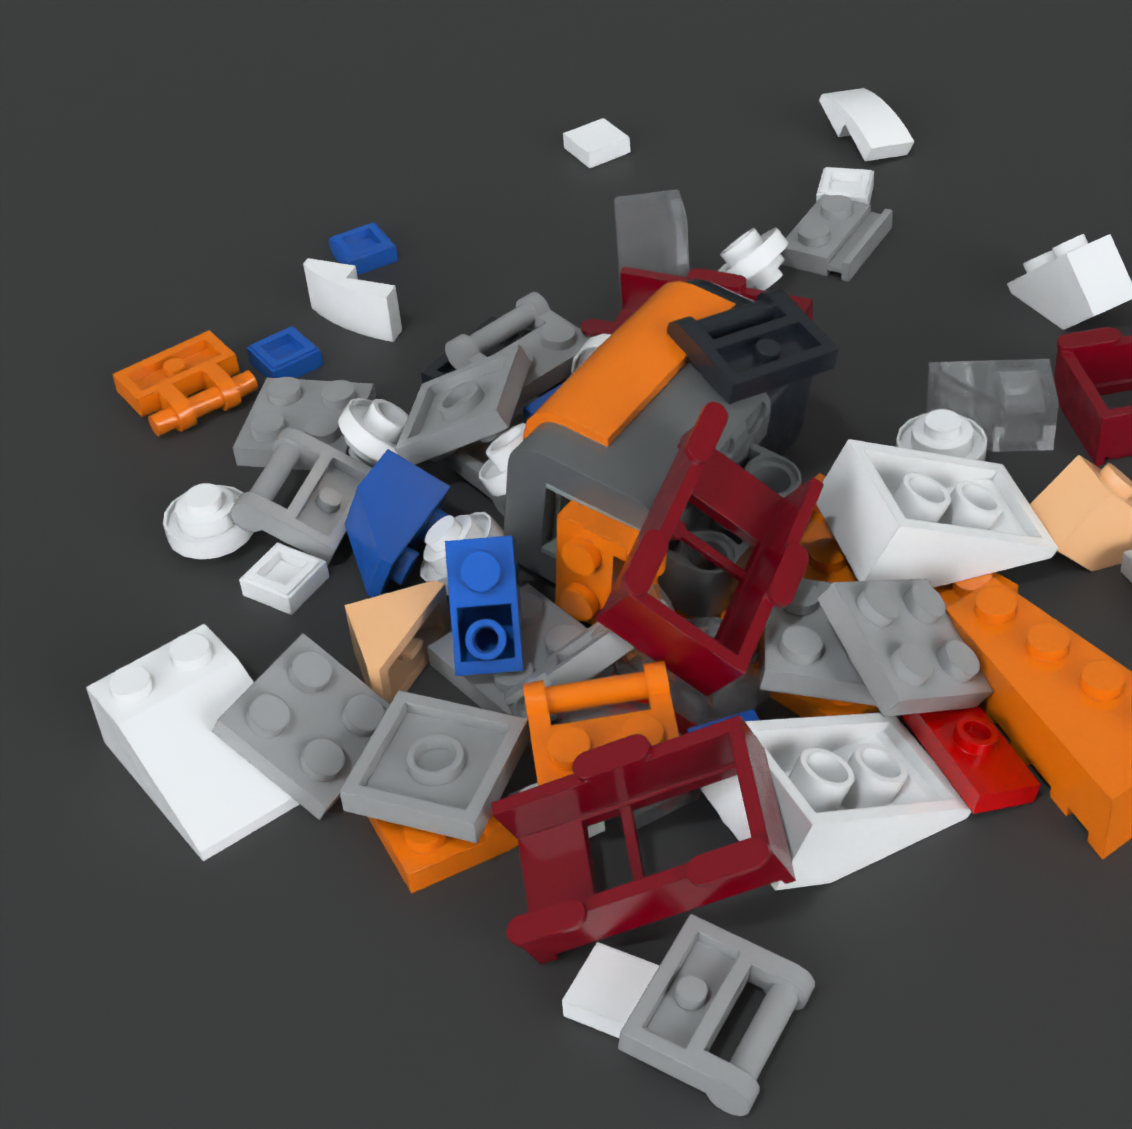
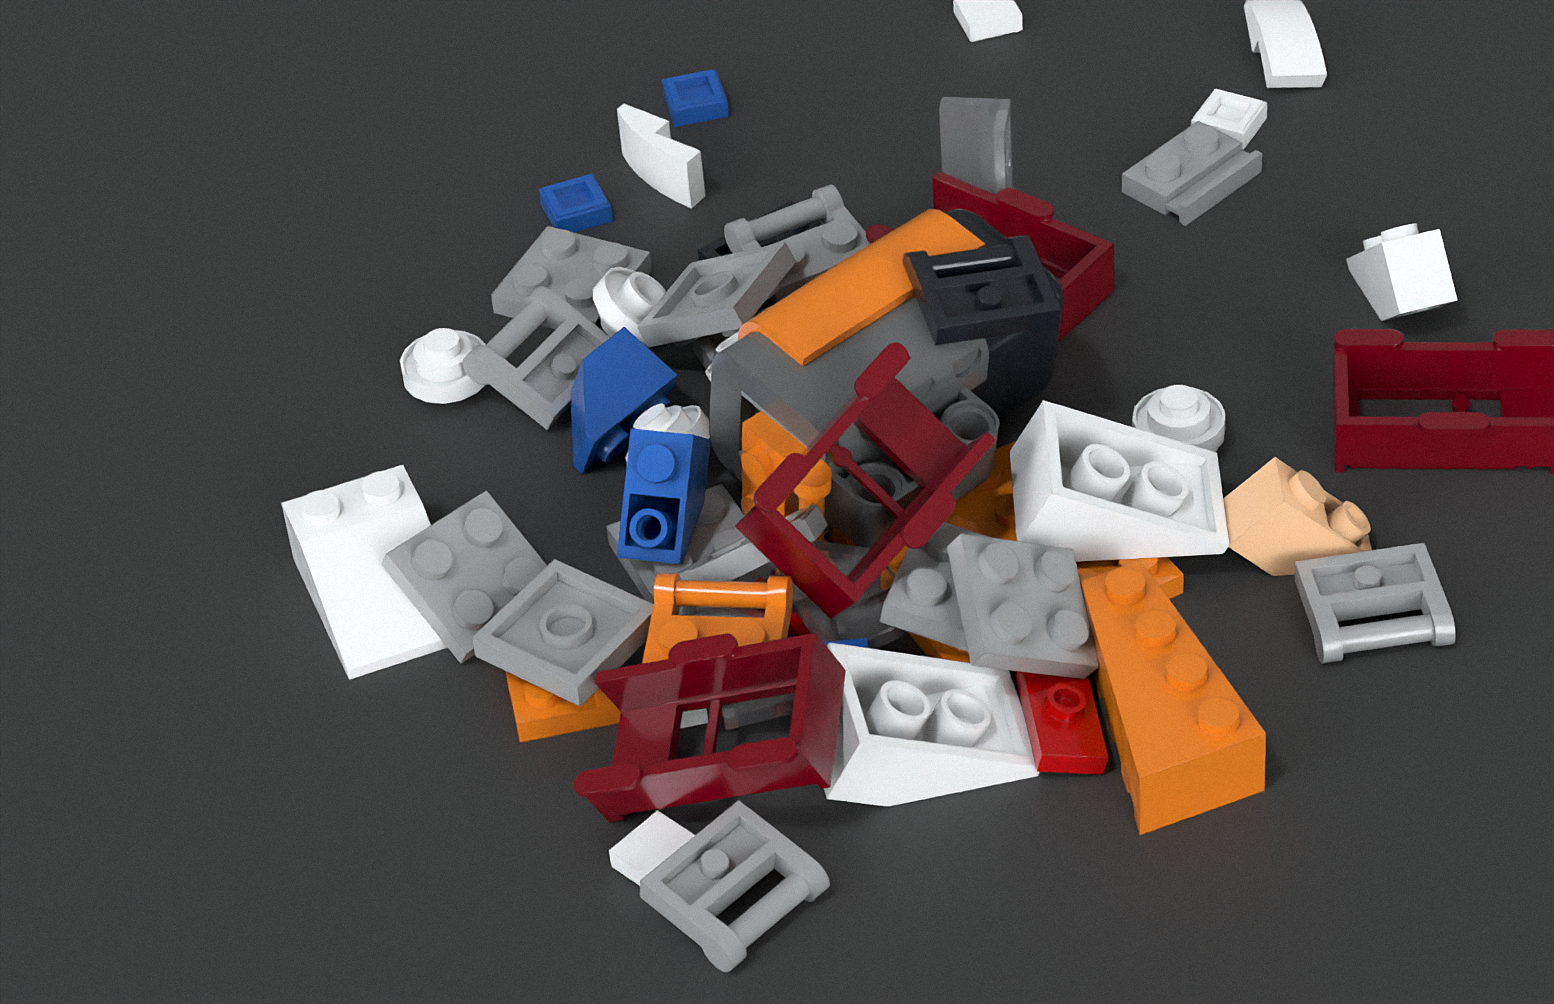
camera: 15 degrees right, 0 degrees up
(172, 375) = (462, 205): orange plate -> none
(284, 578) = (500, 435): white tile -> none
(394, 632) = (576, 509): light nougat slope -> none
(756, 257) = (1083, 186): white plate -> none
(1006, 398) = (1261, 386): clear slope -> none

